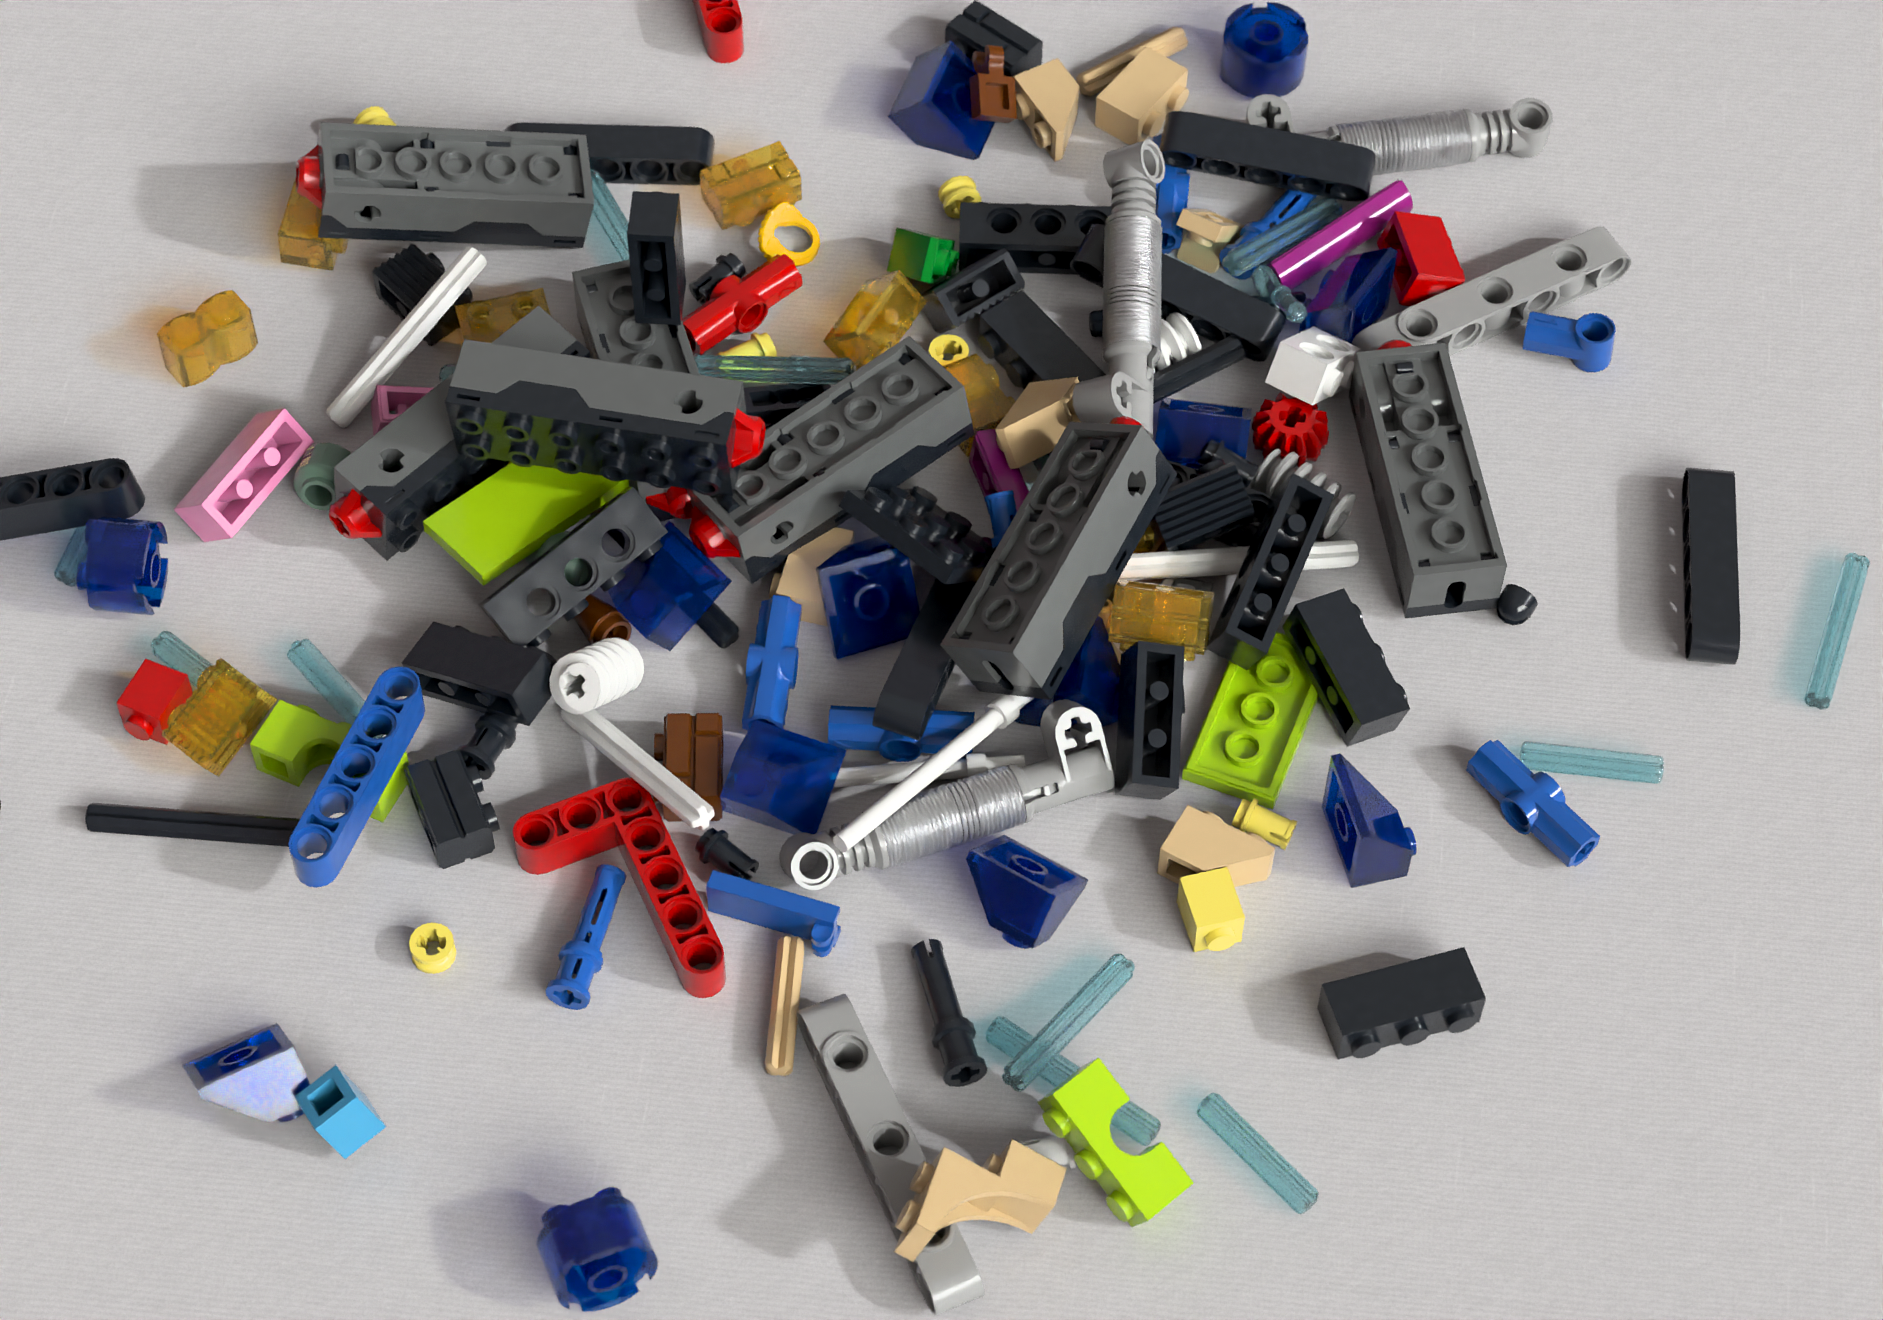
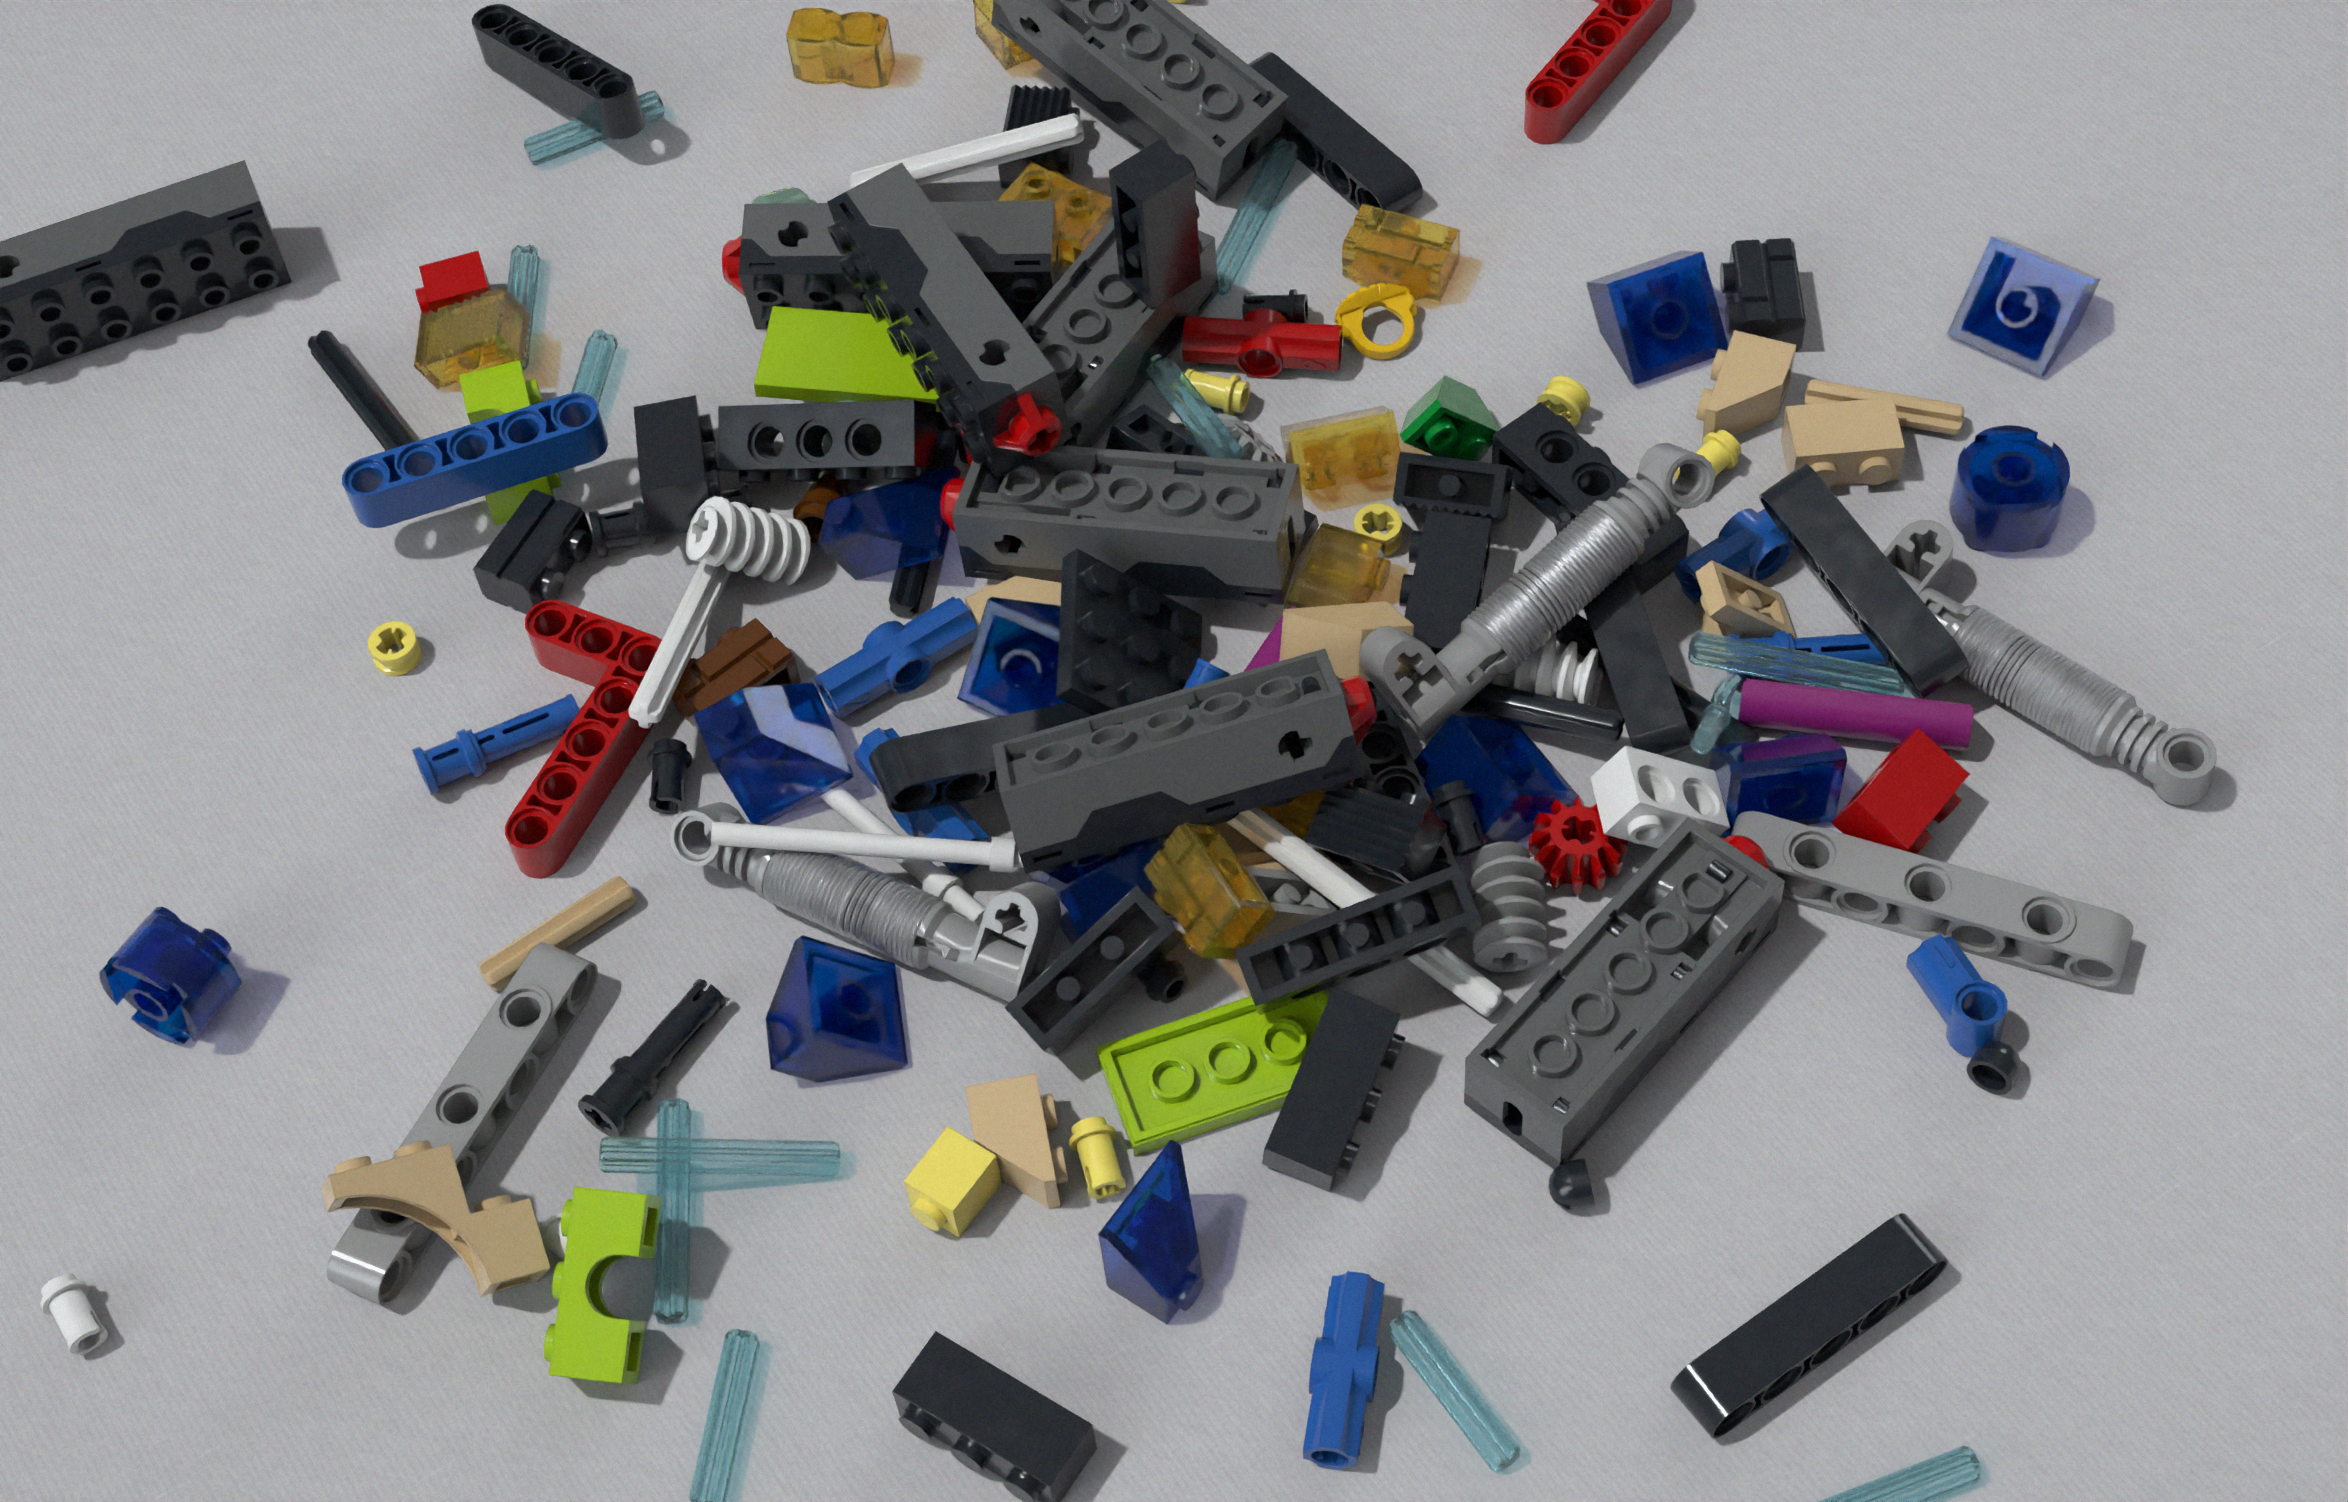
camera: 55 degrees right, 0 degrees up
(124, 565) = (555, 169): clear blue brick -> none
(244, 475) = (723, 172): bright pink brick -> none
(252, 1076) = (157, 627): slope -> none
(340, 1112) = (164, 704): dark azure brick -> none
(775, 910) = (654, 899): blue hinge -> none
(990, 91) = (1698, 330): reddish brown plate -> none
(1080, 160) = (1719, 449): none -> light yellow pin
(1628, 360) = (1995, 1067): none -> black hinge

